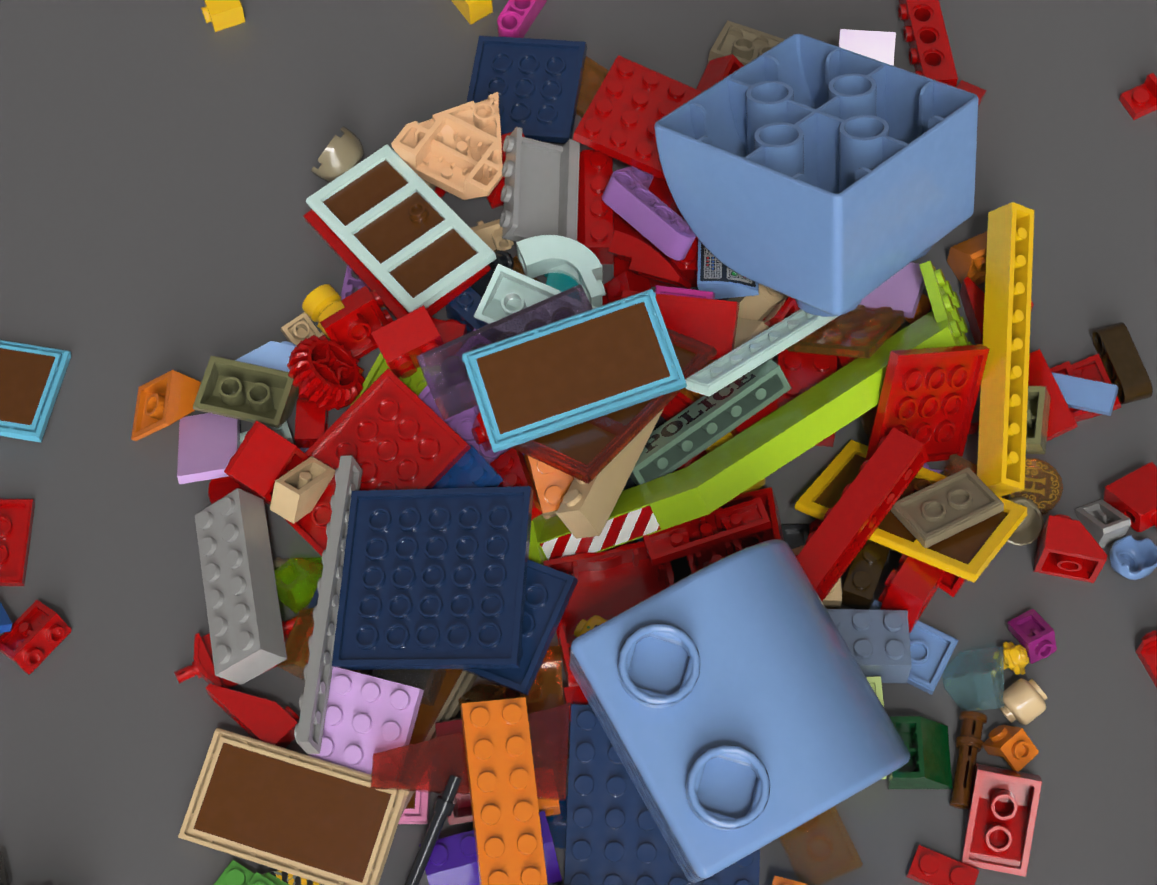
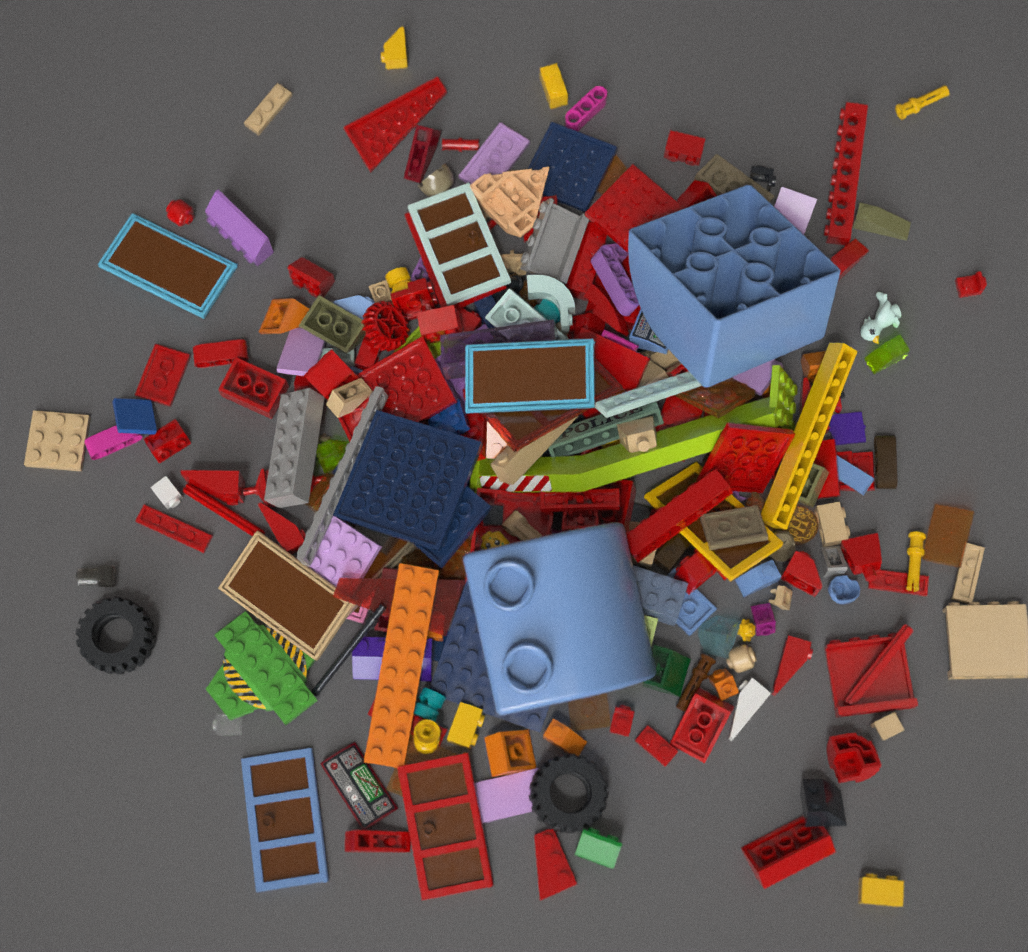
camera: 20 degrees right, 10 degrees up
(54, 714) = (167, 493): none -> white brick
(55, 127) = (268, 109): none -> tan plate
(58, 297) = (238, 228): none -> medium lavender slope
(80, 767) = (174, 528): none -> red tile
(81, 484) = (219, 353): none -> red beam
(134, 676) = (223, 485): none -> red slope
(147, 716) = (221, 510): none -> red axle
(148, 518) = (253, 388): none -> red brick
(189, 337) = (310, 277): none -> red slope
(239, 106) = (387, 126): none -> red wing
(303, 124) = (421, 152): none -> dark red slope
(356, 101) = (460, 144): none -> red pin
(414, 96) = (496, 154): none -> lavender tile
(582, 599) = (494, 517): none -> black tile
(618, 598) = (517, 526): none -> tan piece
(680, 23) = (684, 148): none -> red brick
(764, 409) = (638, 434): none -> tan torso
(808, 26) = (763, 174): none -> black bracket
(877, 850) = (622, 721): none -> red bracket
(988, 48) = (881, 222): none -> olive slope
(1004, 577) = (758, 578): none -> medium blue slope
(1044, 168) = (885, 316): none -> light aqua animal
(1049, 594) = (783, 597): none -> tan tile
(1053, 333) = (847, 428): none -> dark purple piece
(1057, 765) = (747, 703): none -> white slope
(1067, 217) = (887, 354): none -> clear neon green slope
(1080, 470) = (832, 524): none -> tan brick
(1097, 676) = (793, 657): none -> red slope

